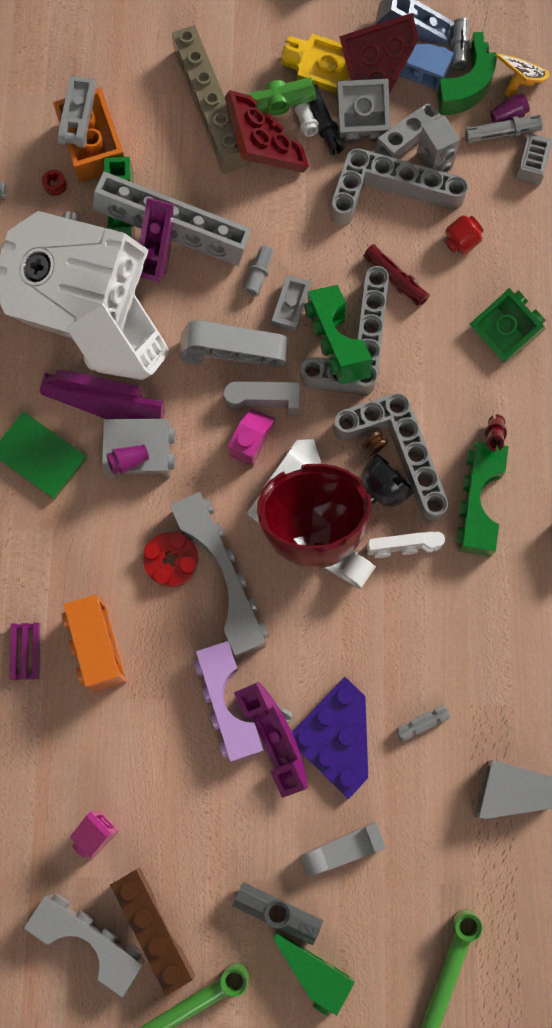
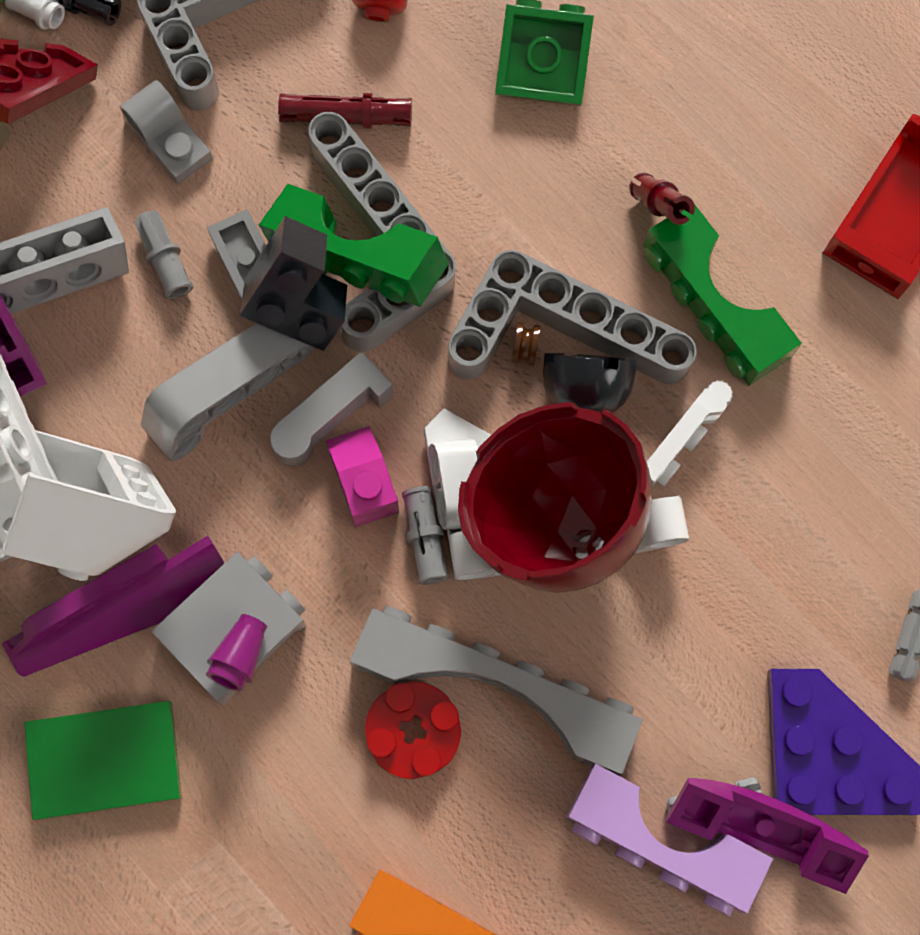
camera: 50 degrees left, 0 degrees up
(253, 484) = (425, 535): none -> light grey pin
(291, 330) = (291, 291): none -> black brick
(309, 219) = (161, 128): none -> light grey plate

